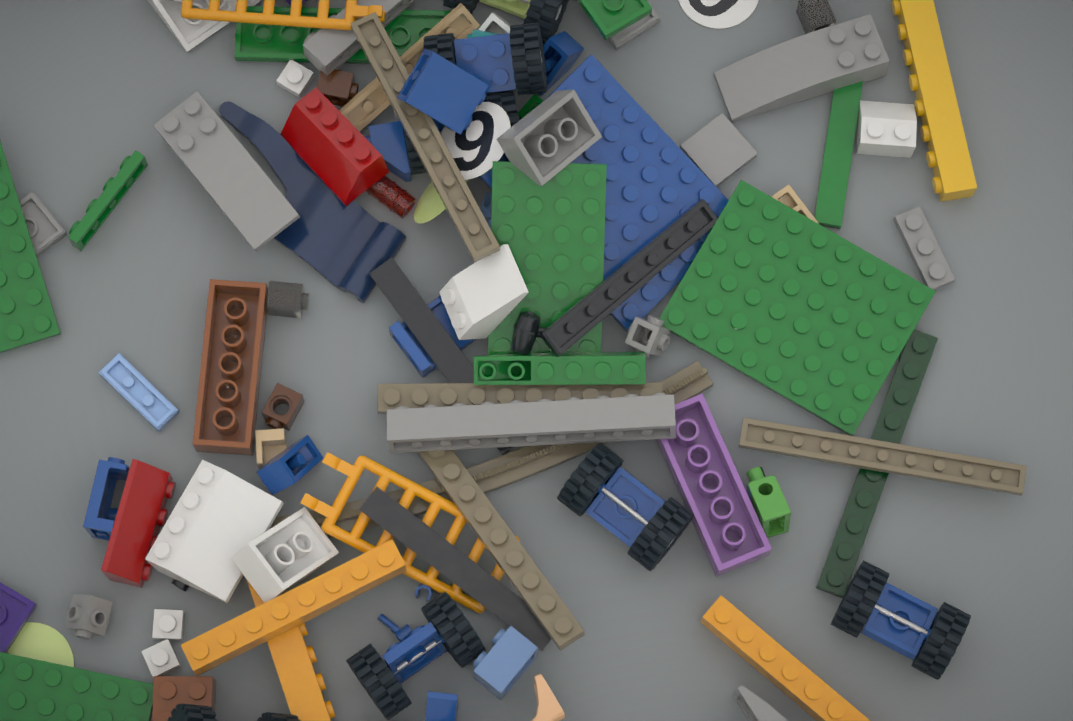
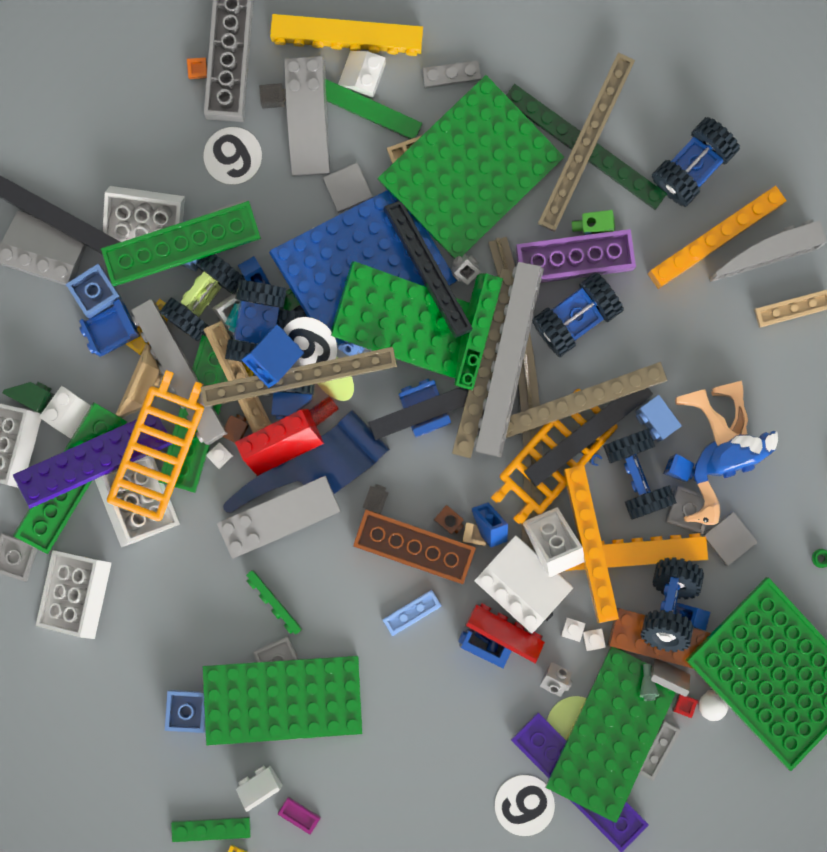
camera: 75 degrees left, 10 degrees up
(402, 633) = (619, 479): blue hand -> none
(483, 294) = (416, 367): white slope -> none
(525, 332) = (446, 346): black piece -> none
(550, 136) = (325, 293): light grey slope -> none

